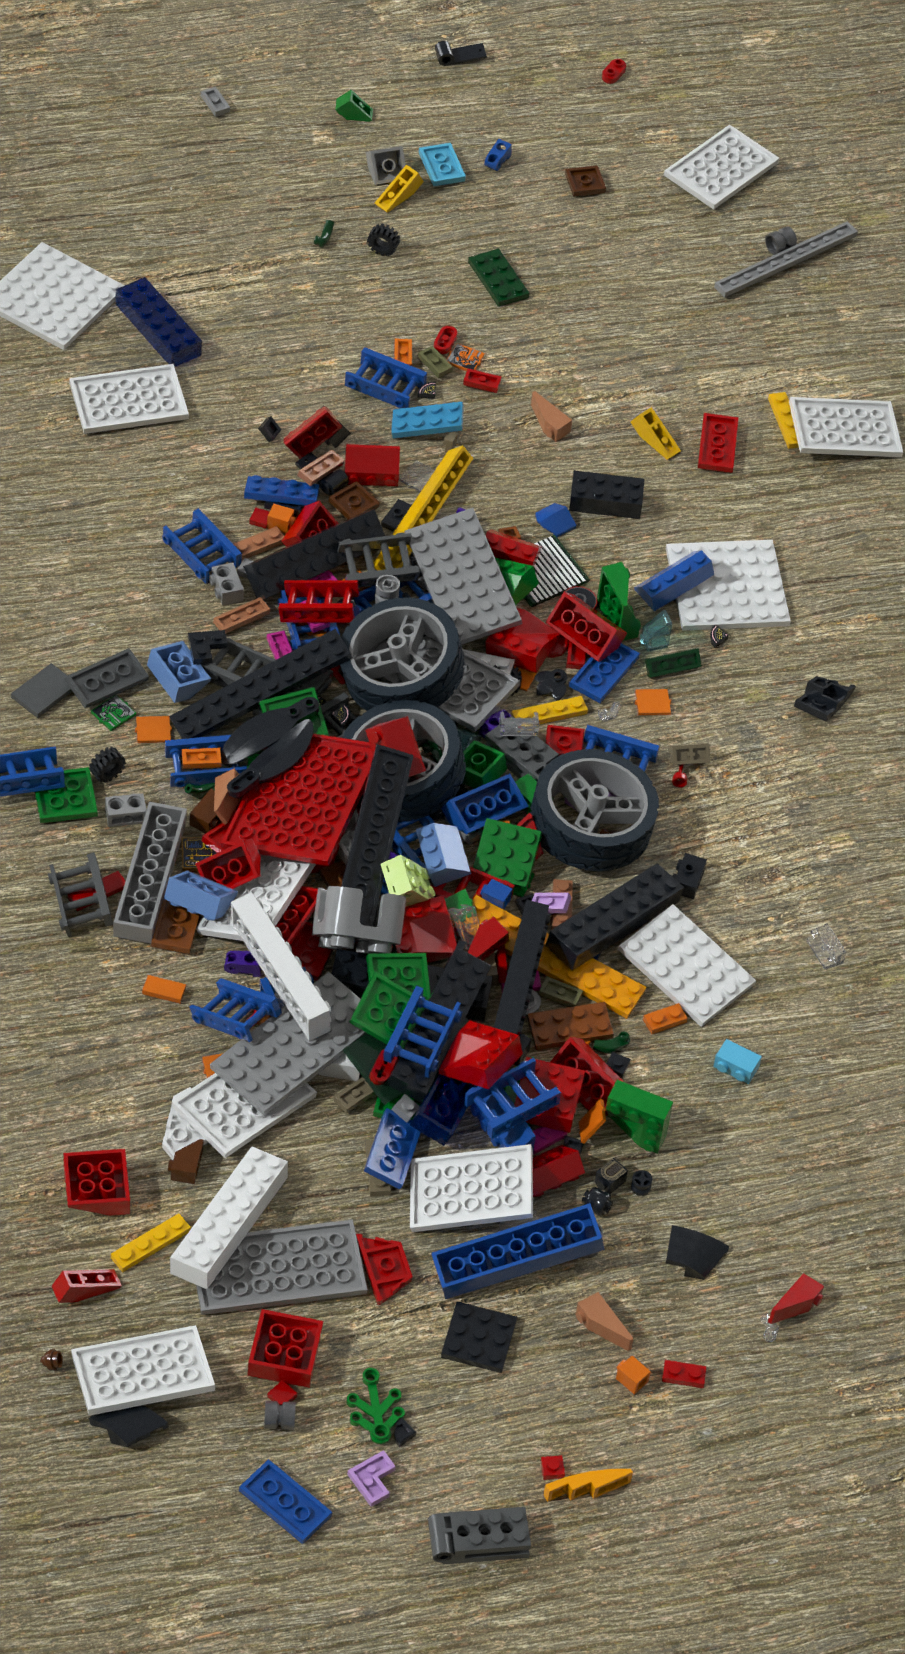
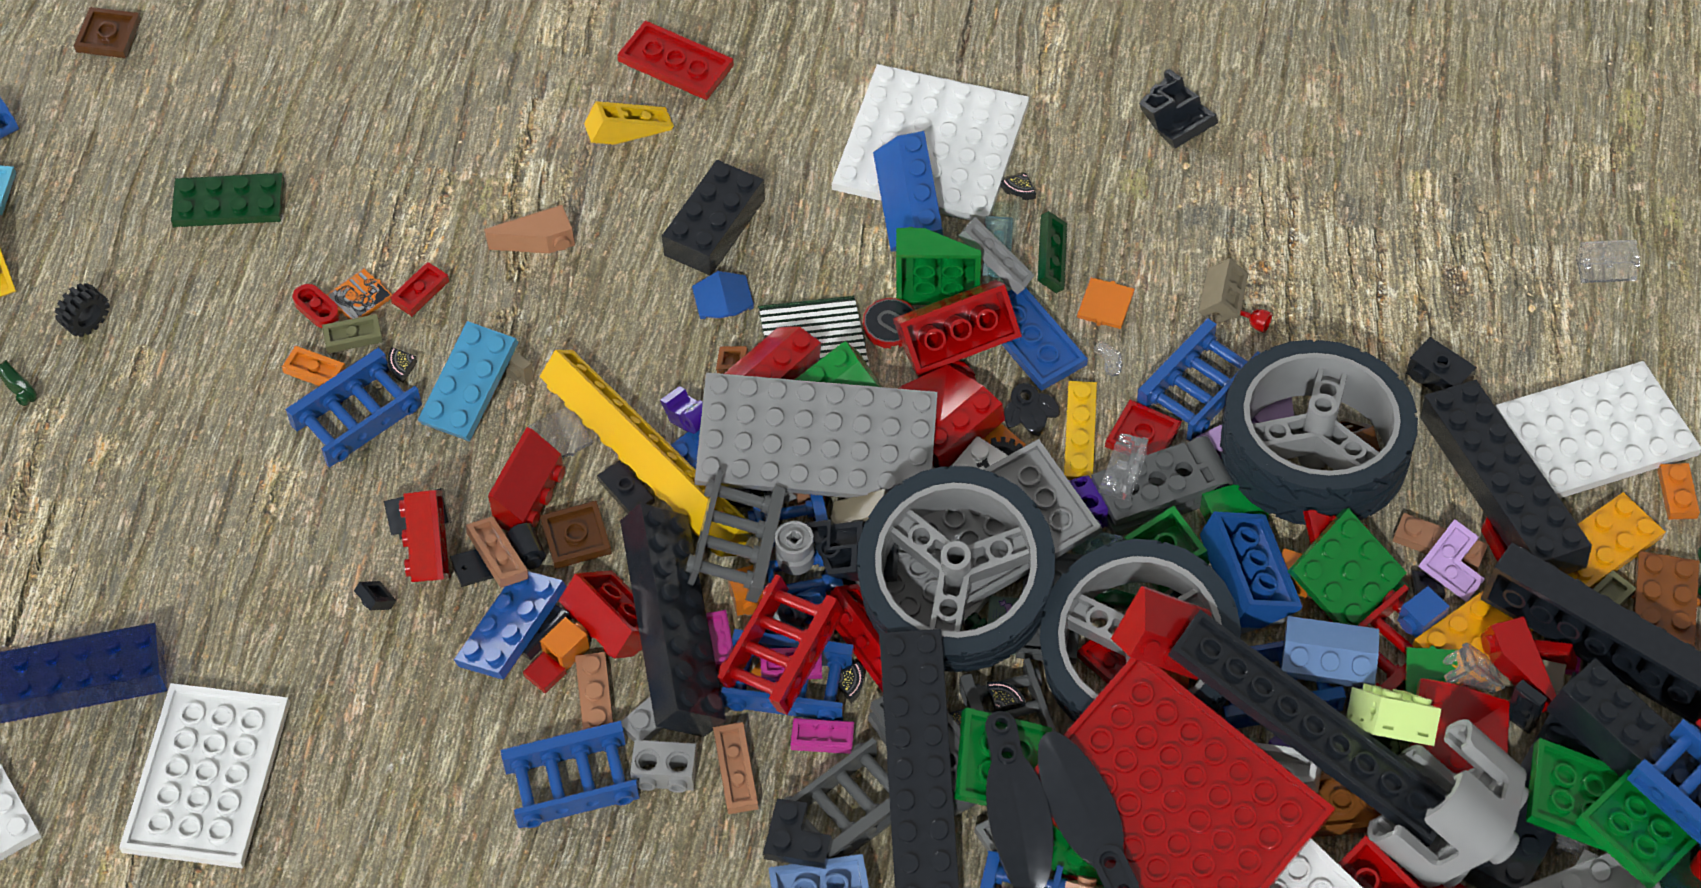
camera: 60 degrees left, 5 degrees up
(576, 657) = (990, 364): red tile -> none
(643, 627) = (997, 256): none -> light grey plate

